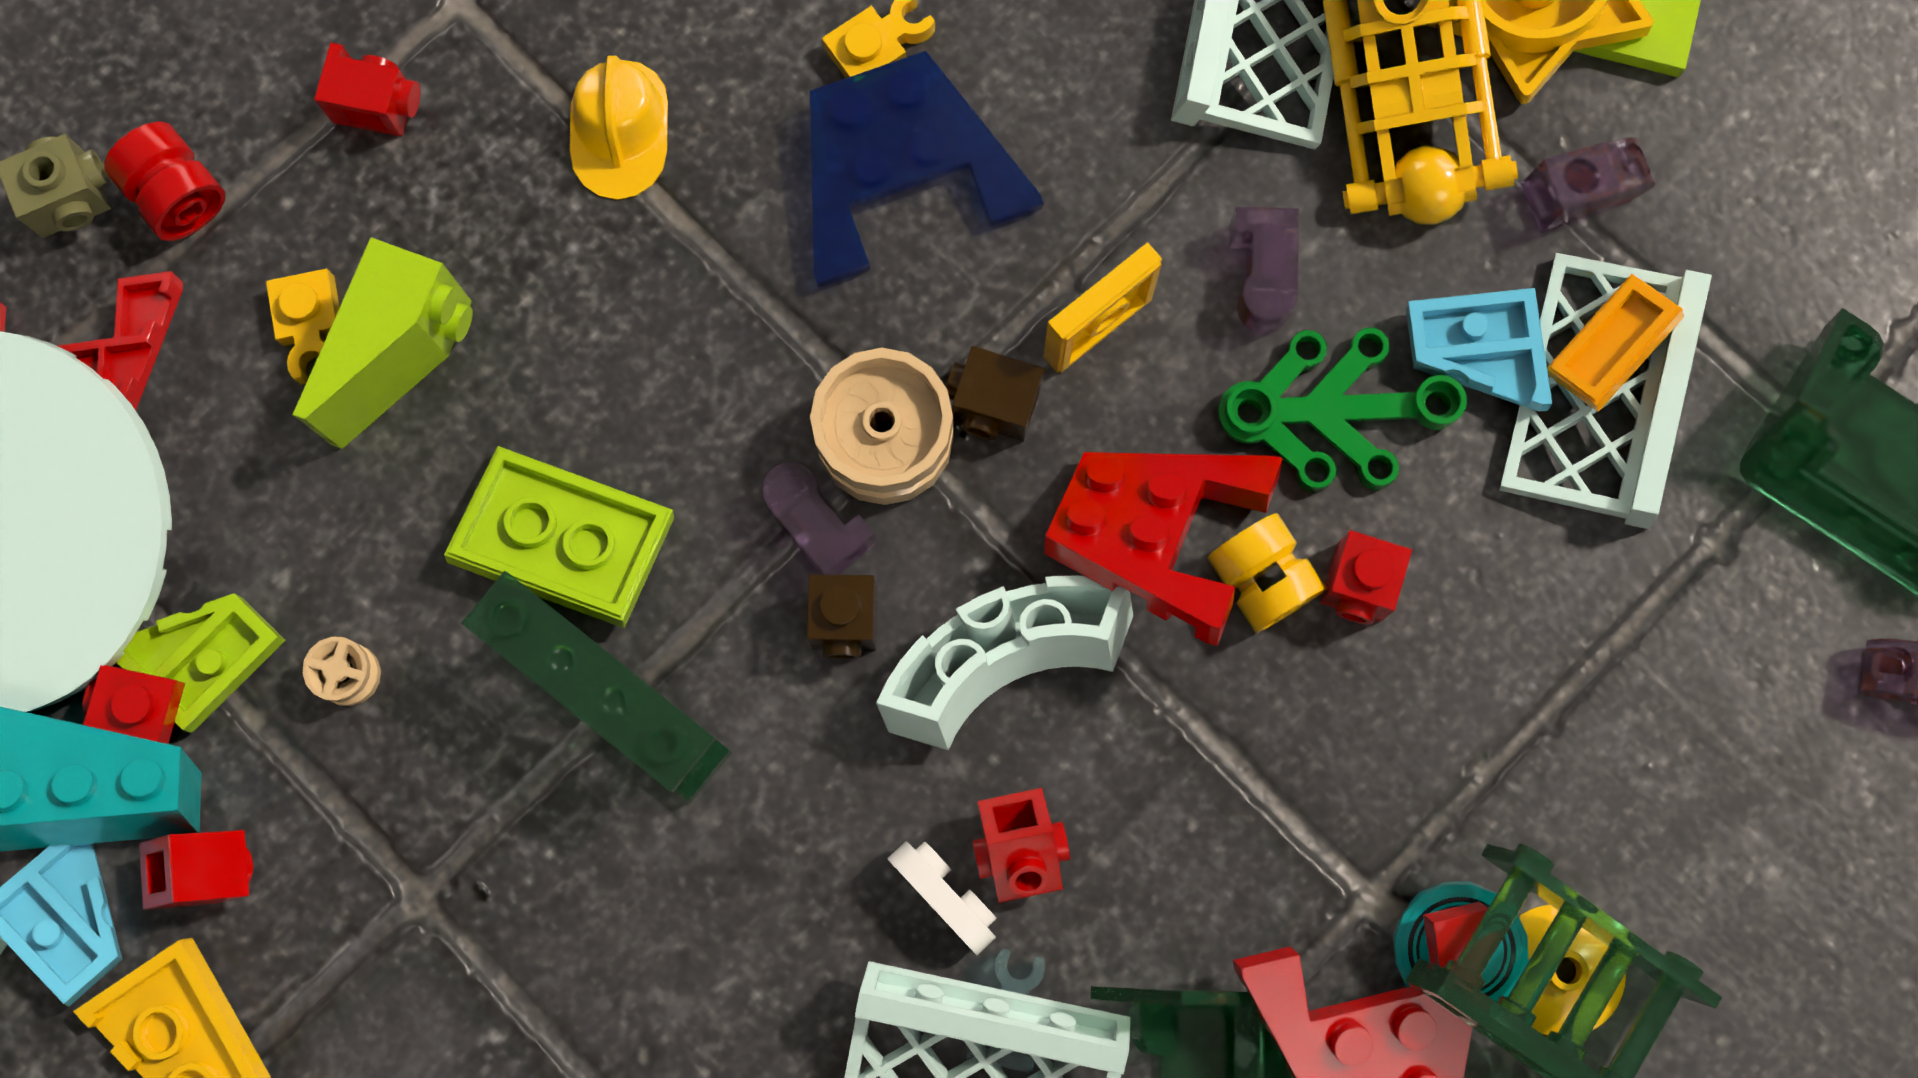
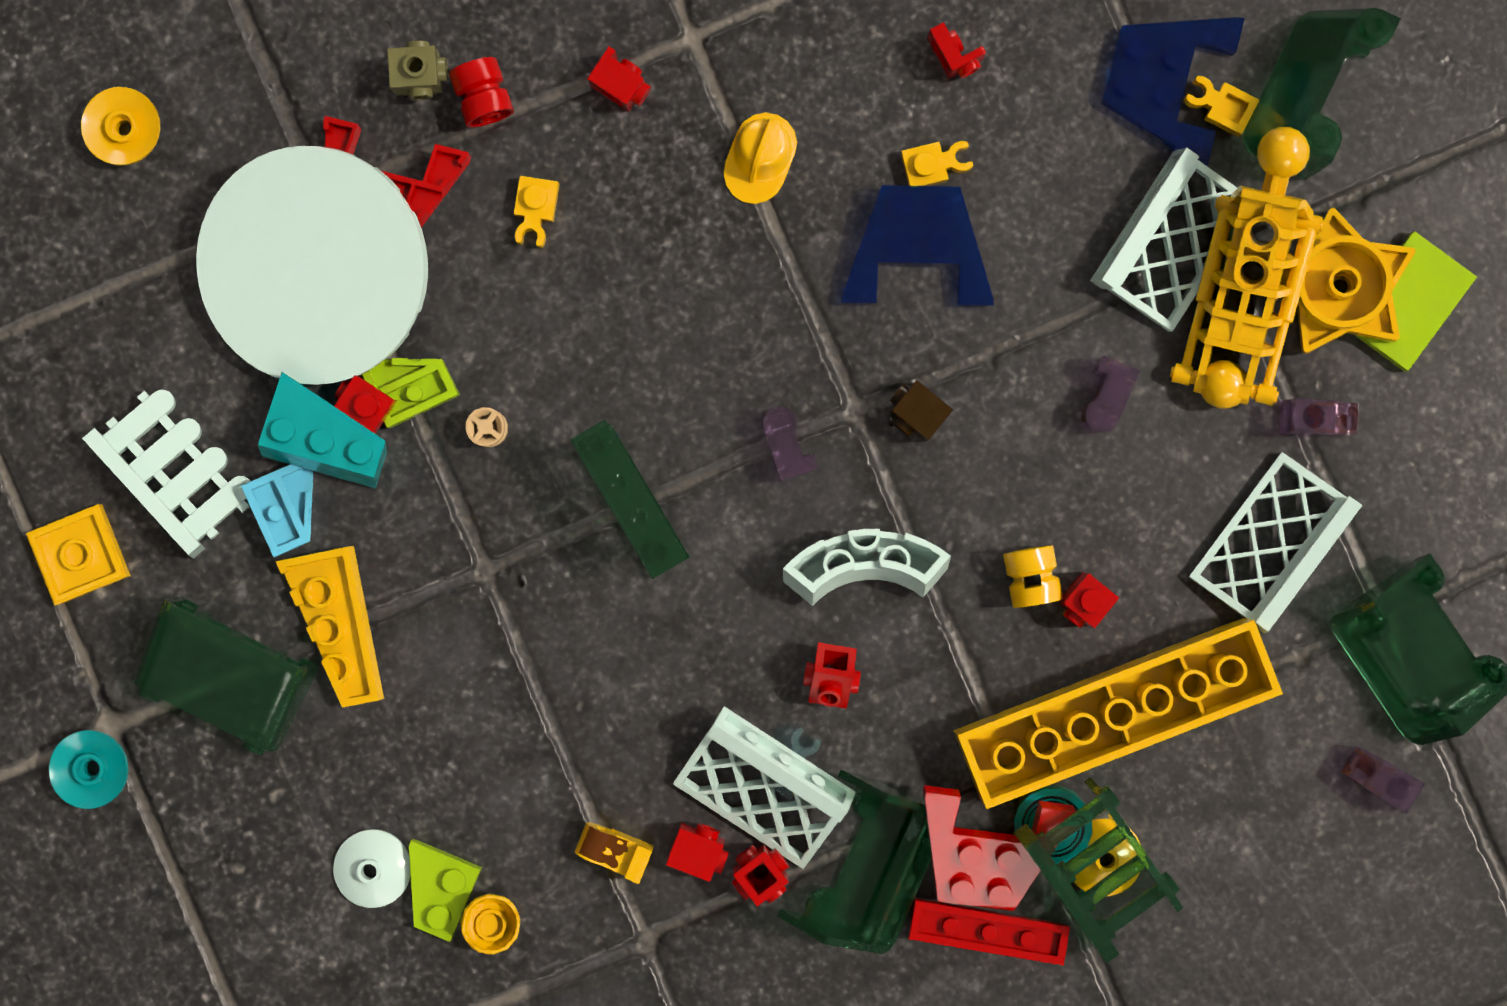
camera: 15 degrees right, 10 degrees up
(195, 869) = (369, 510): red brick -> none
(383, 341) = (583, 241): lime slope -> none
(560, 536) = (638, 396): lime tile -> none
(842, 615) = (782, 507): dark brown brick -> none
(875, 389) = (869, 399): tan wheel -> none
(965, 915) = (773, 670): white plate -> none
(1102, 308) = (1001, 387): yellow tile -> none
(1131, 516) = (968, 514): red wing -> none
(1330, 410) = (1109, 493): green plant -> none
(1483, 731) = (1117, 712): none -> yellow brick
(1484, 344) = (1214, 491): medium azure wing -> none
(1615, 342) = (1289, 522): light orange tile -> none

